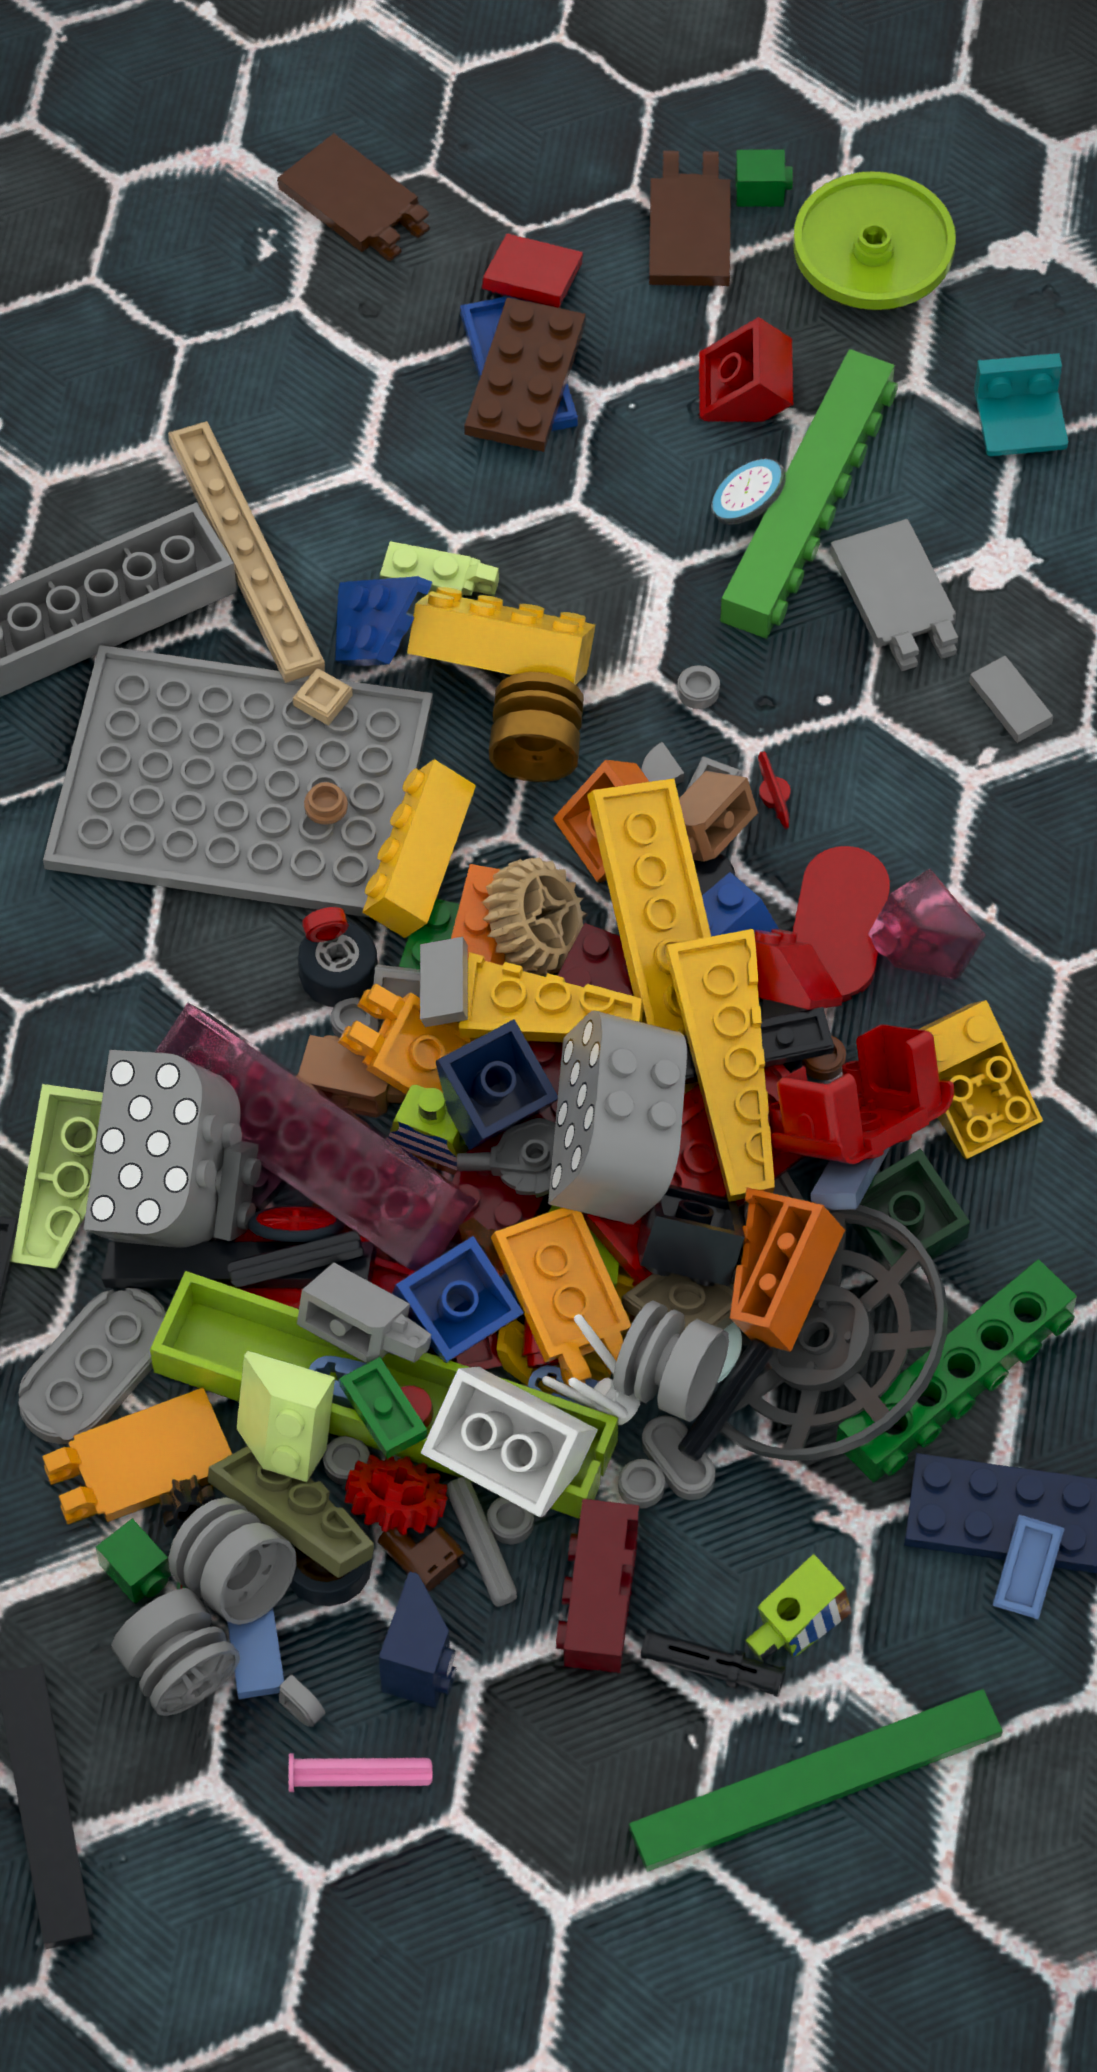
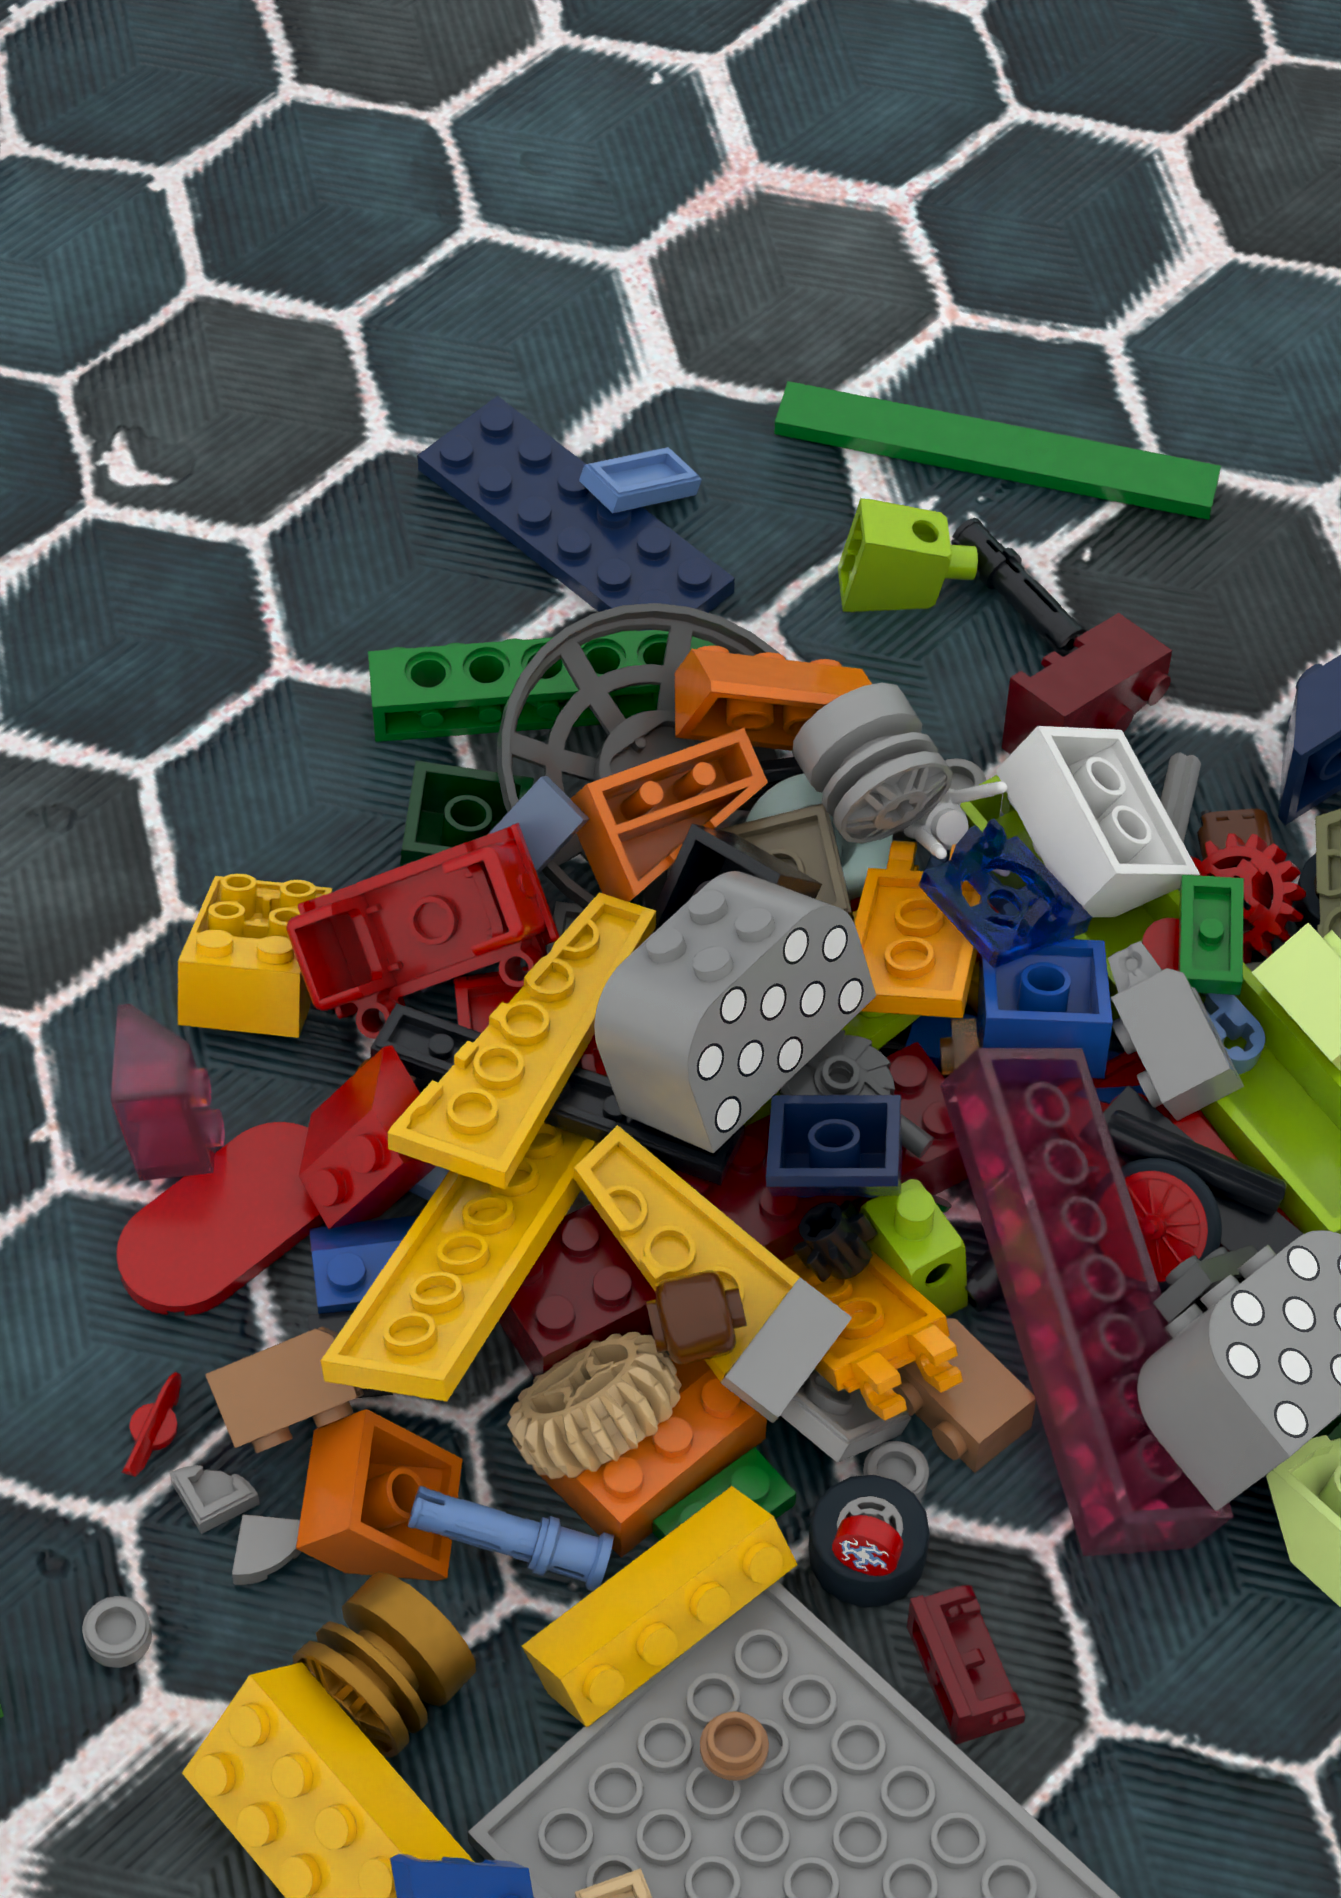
camera: 145 degrees left, 5 degrees down
(240, 935) = (962, 1664): none -> dark red hinge
(497, 1291) = (1000, 937): none -> clear blue piece
(502, 949) = (695, 1317): none -> reddish brown head
(511, 846) = (541, 1544): none -> medium blue pin
(776, 1388) = (758, 692): none -> orange slope

